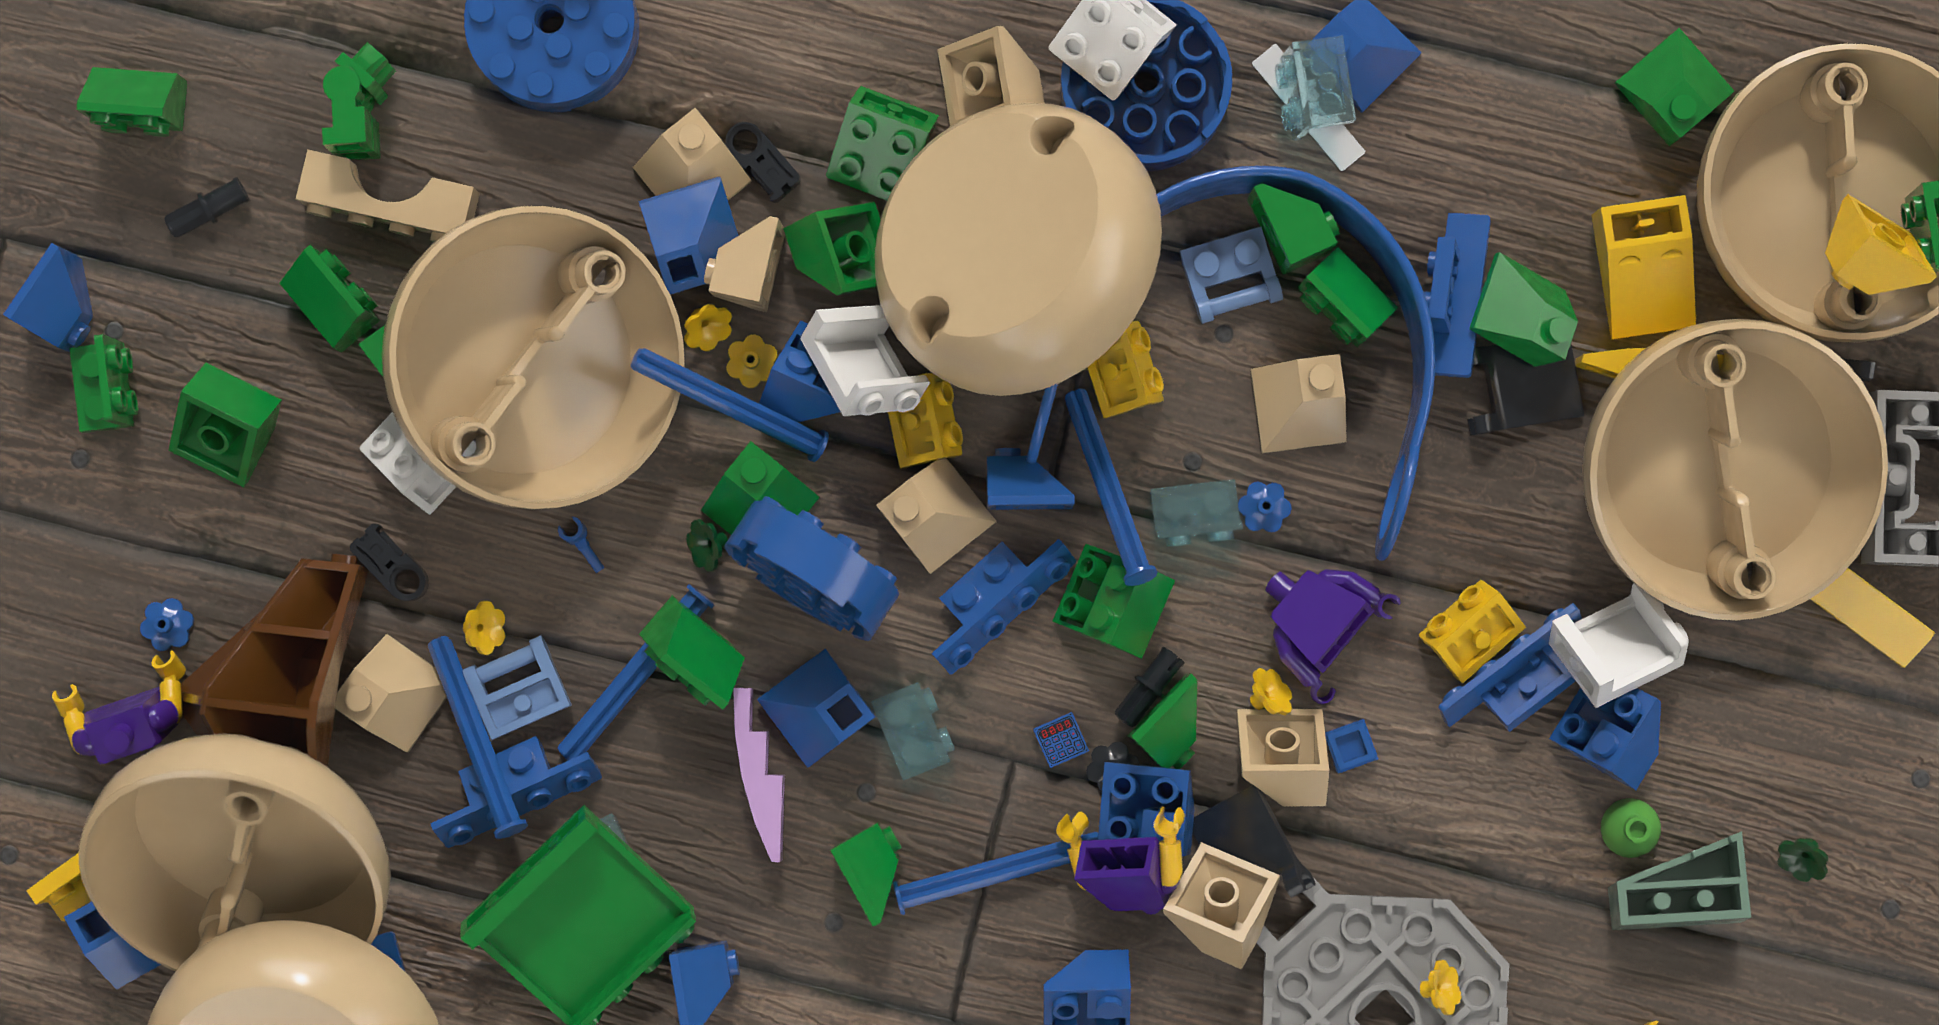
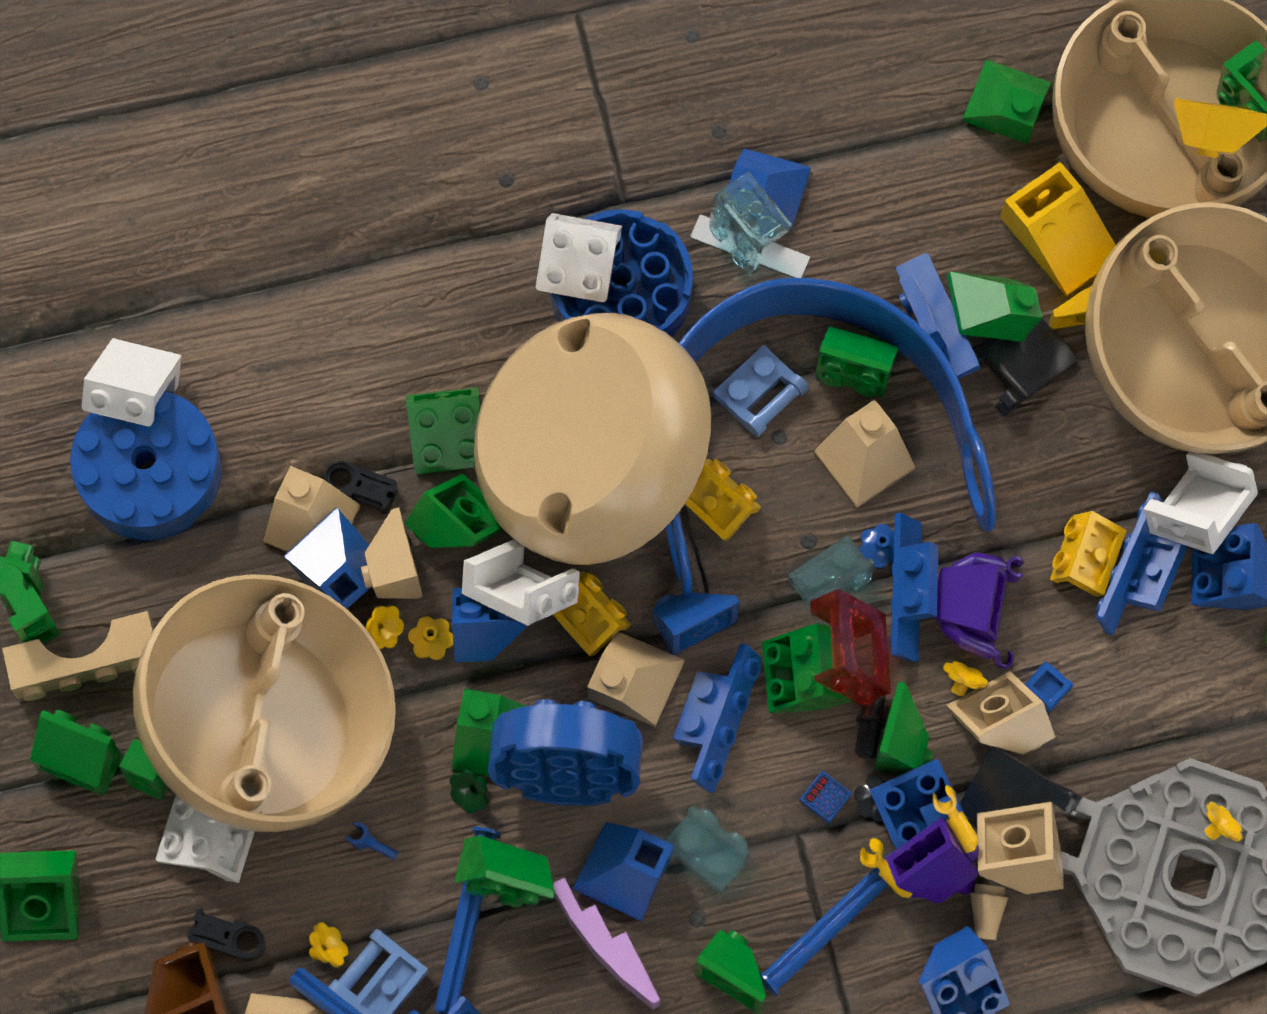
camera: 30 degrees left, 15 degrees down
(730, 403) = (434, 667): blue axle -> none
(987, 74) = (495, 334): tan slope -> none
(1109, 489) = (759, 585): blue axle -> none
(1157, 944) = (987, 909): none -> tan cone
(1176, 569) = (851, 619): none -> clear red panel
(1270, 571) = (913, 586): none -> blue bracket
(1292, 227) = (787, 327): green slope -> none

